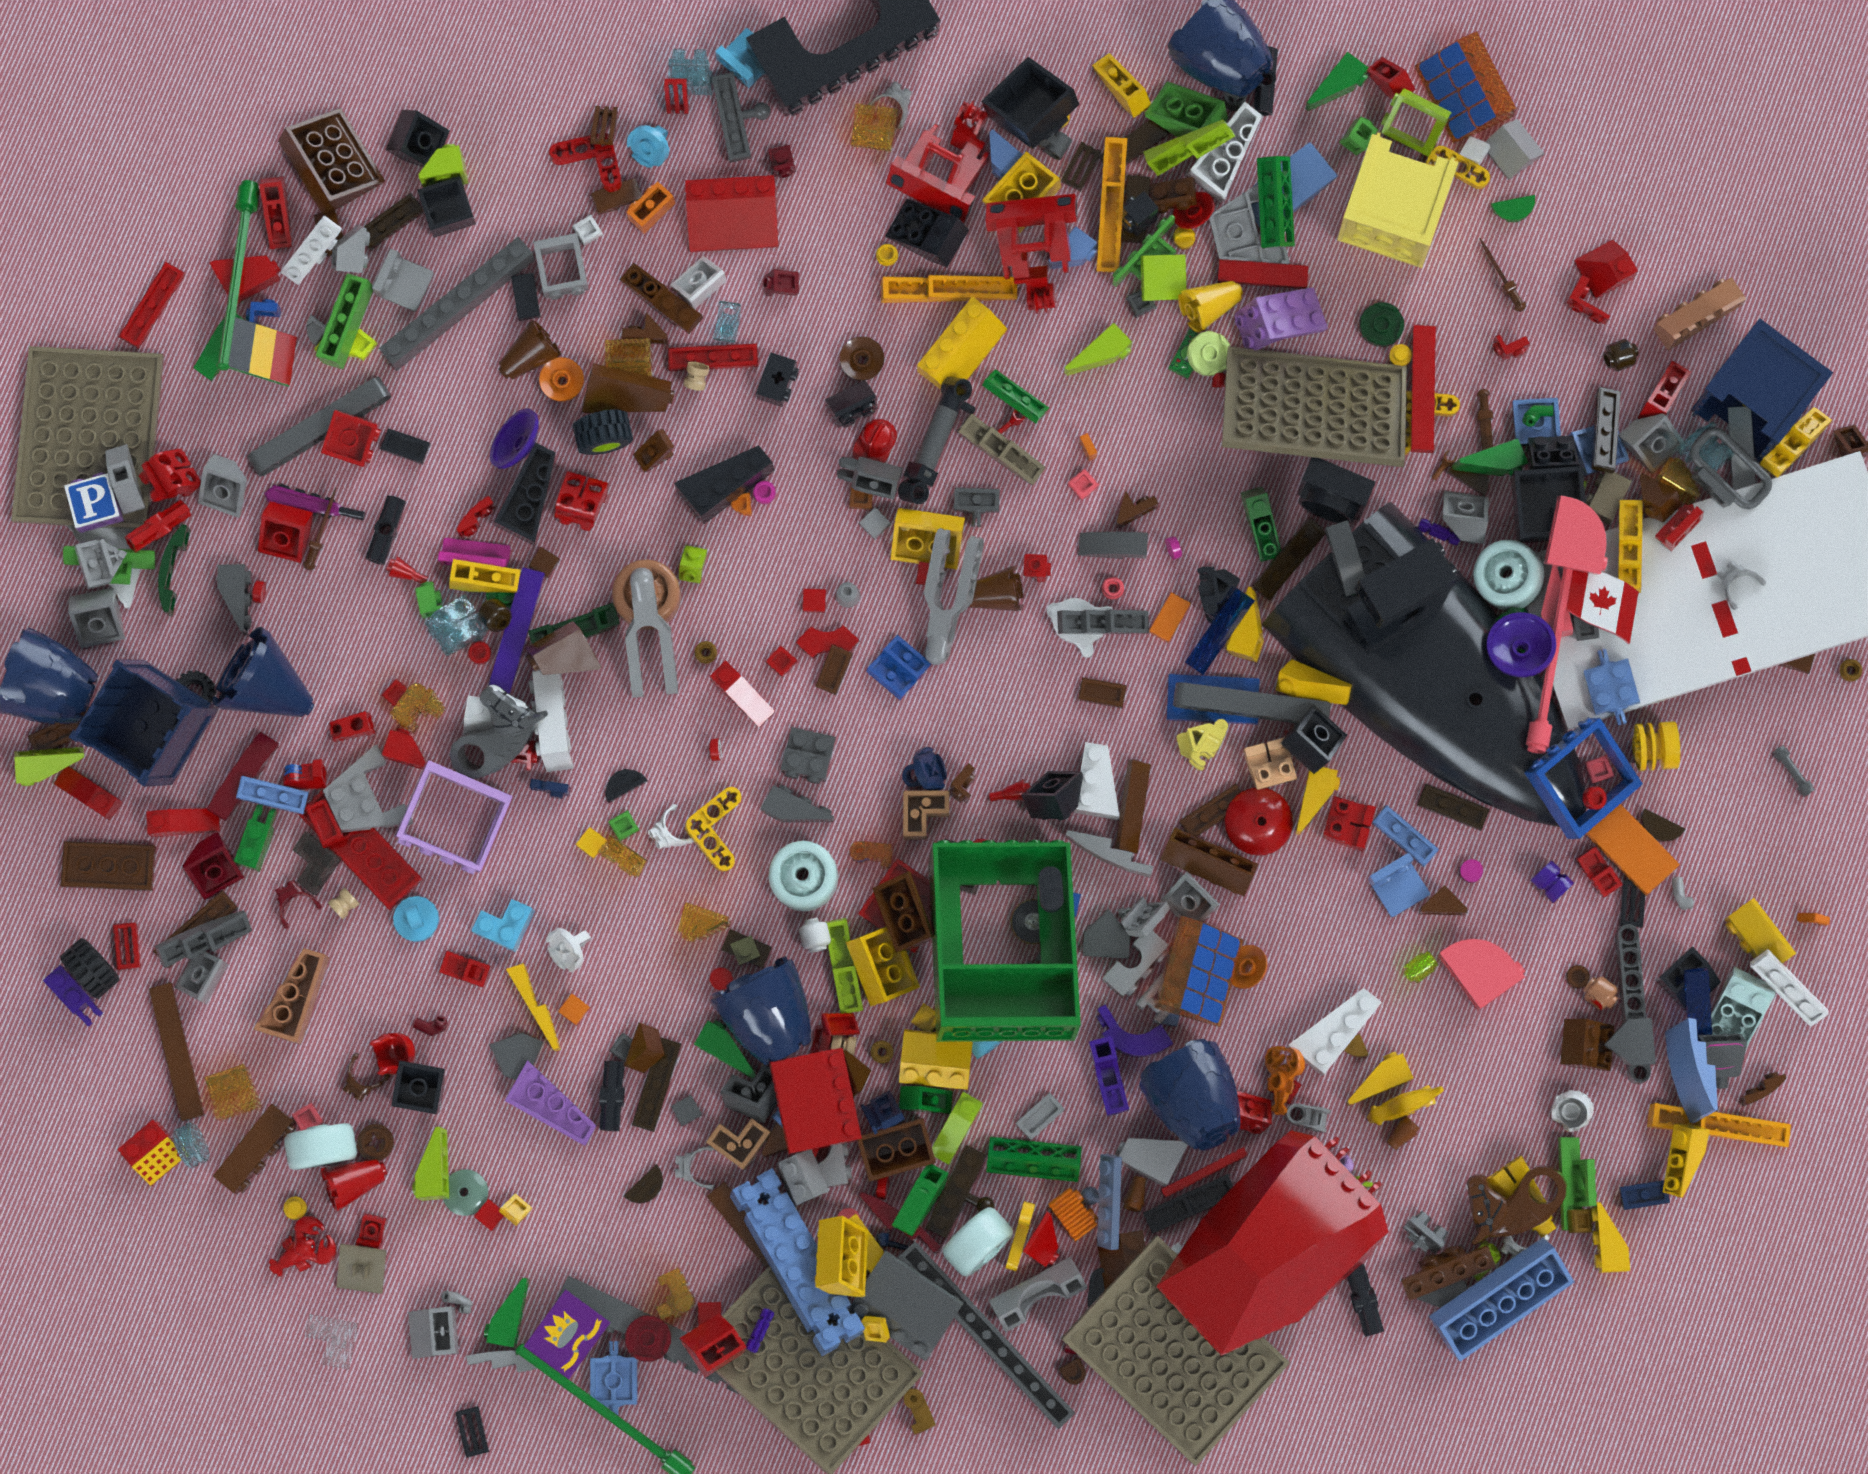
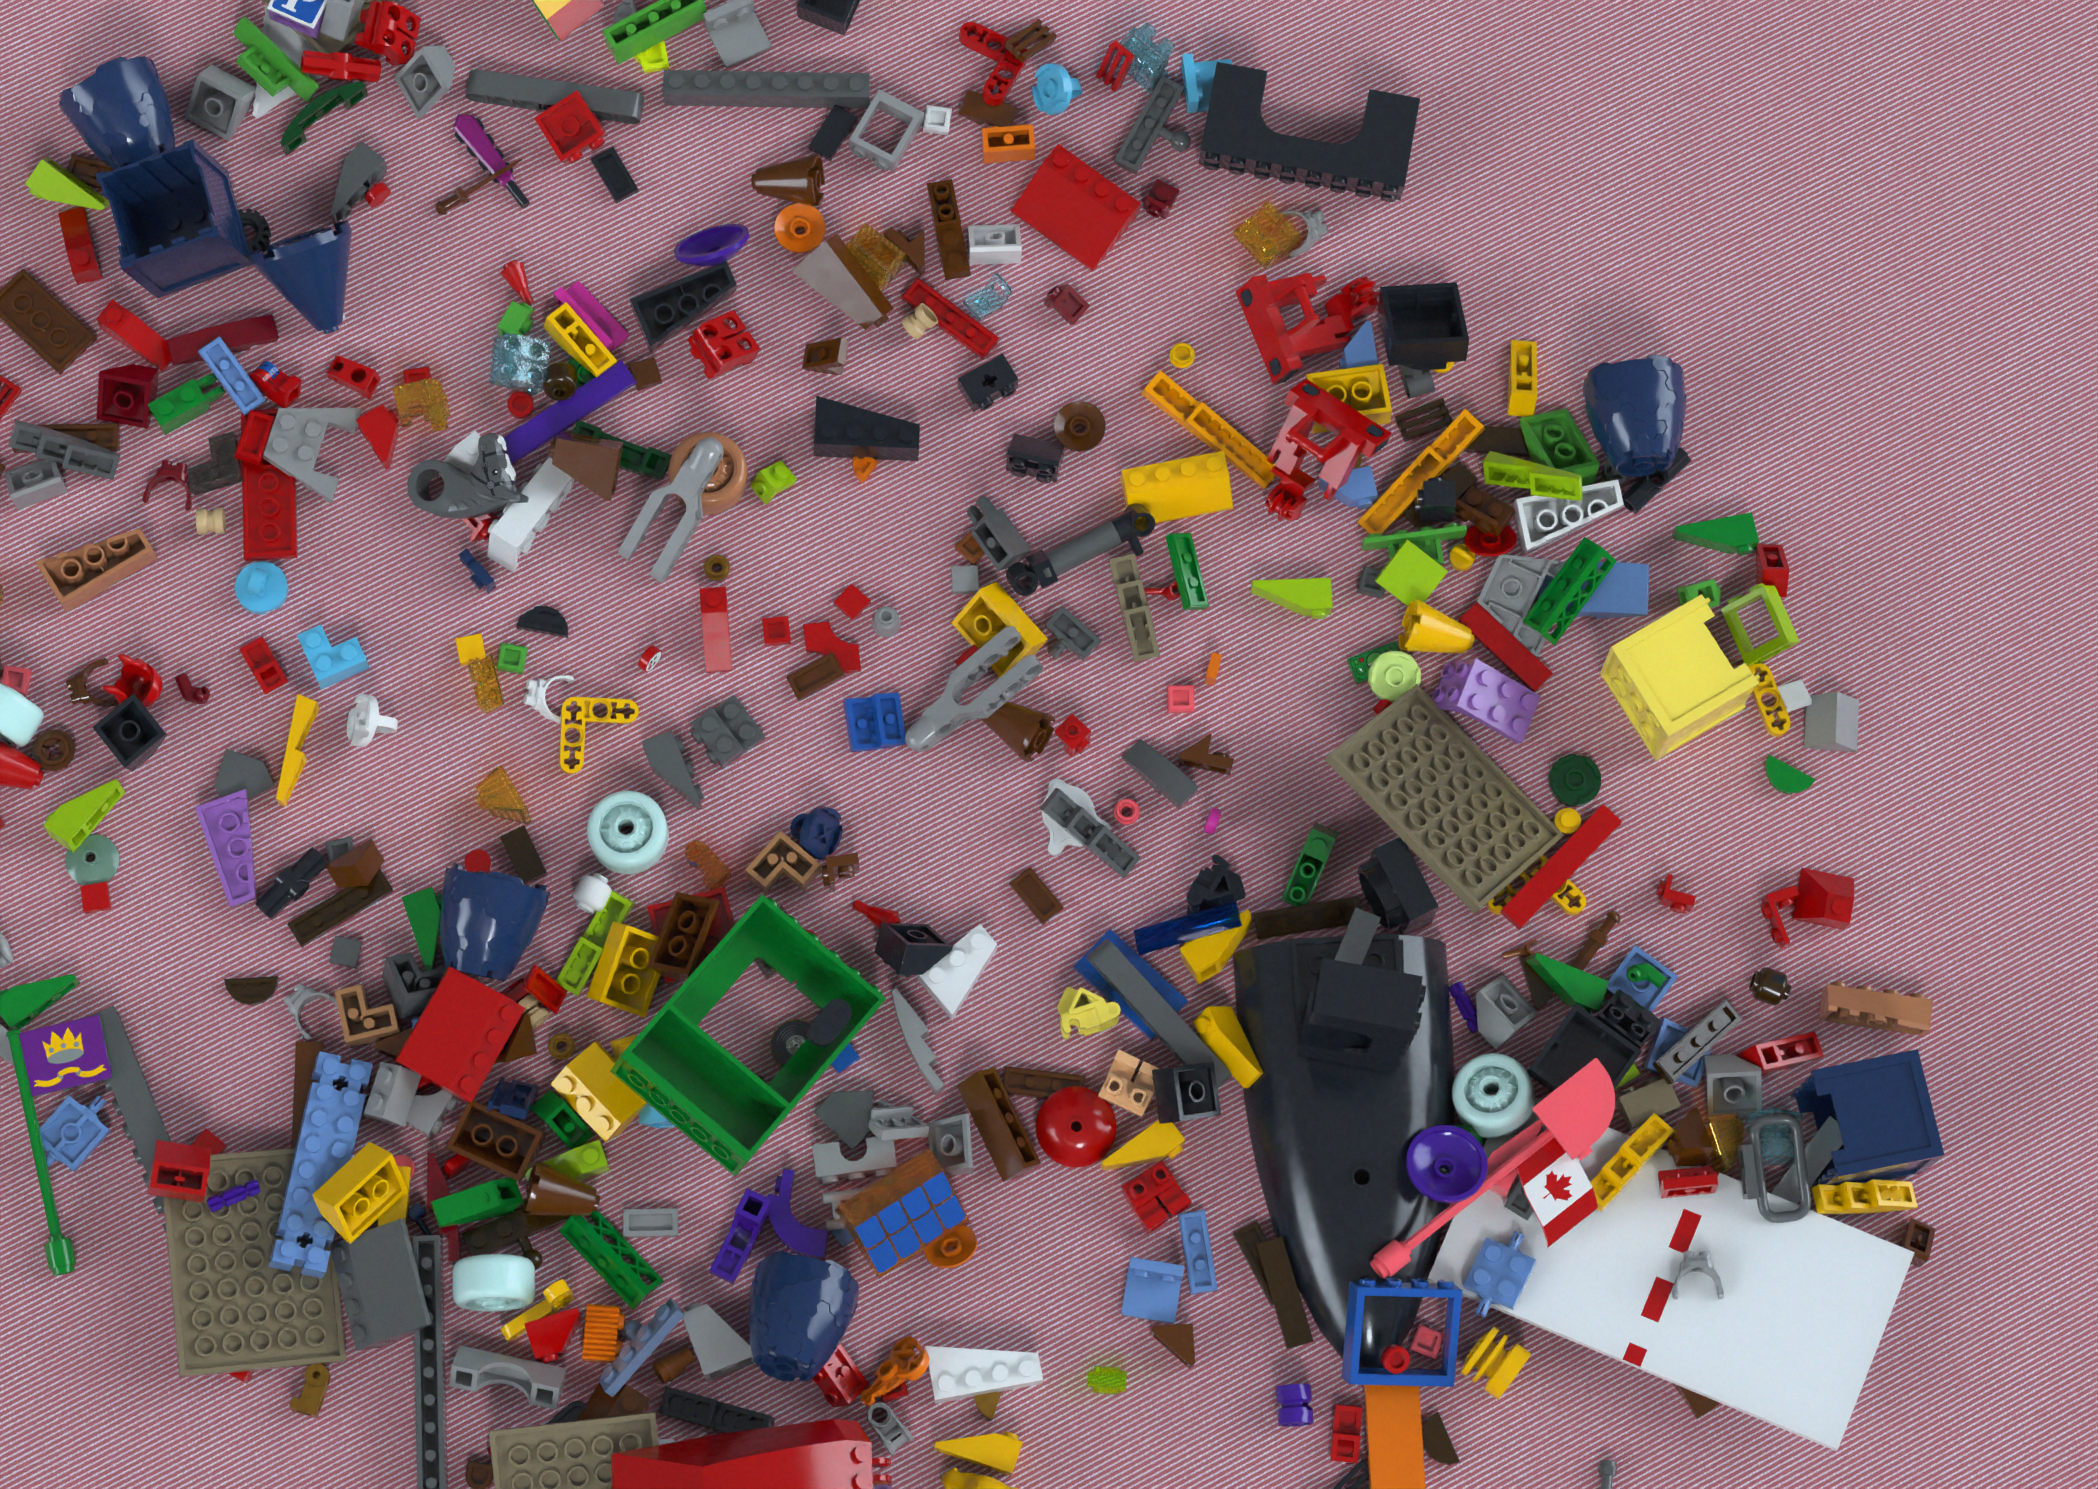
camera: 30 degrees right, 5 degrees down
(98, 562) = (261, 54): light grey slope -> none
(284, 531) = (445, 161): red slope -> none
(390, 516) = (518, 239): black piece -> none
(468, 783) = (323, 534): lavender window -> none
(469, 524) = (610, 285): red slope -> none
(515, 1209) = (121, 911): yellow tile -> none
(574, 1009) = (327, 781): orange tile -> none
(602, 432) = (793, 301): black wheel -> none
(648, 1338) = (132, 1120): dark red tile -> none
(681, 1295) = (193, 1108): clear yellow hips -> none
(745, 950) = (520, 855): olive plate -> none
(764, 492) = (891, 472): dark pink tile -> none
(875, 440) = (1030, 509): red piece -> none
(875, 1329) = (336, 1282): yellow tile -> none
(928, 232) = (1235, 365): black slope -> none
(967, 1149) = (558, 1194): none -> reddish brown cone
(1132, 806) = (974, 1018): reddish brown tile -> none
(1169, 617) = (1155, 880): orange tile -> none
(1204, 1172) = (751, 1397): red tile -> none
(1467, 85) = (1835, 633): slope -> none
(1471, 871) = (1230, 1334): dark pink tile -> none
(1481, 969) = (1161, 1430): coral brick -> none
(1484, 815) = (1284, 1293): none -> dark brown tile
(1508, 288) = (1719, 842): reddish brown sword -> none
(1853, 664) = (1746, 1445): pearl gold plate -> none

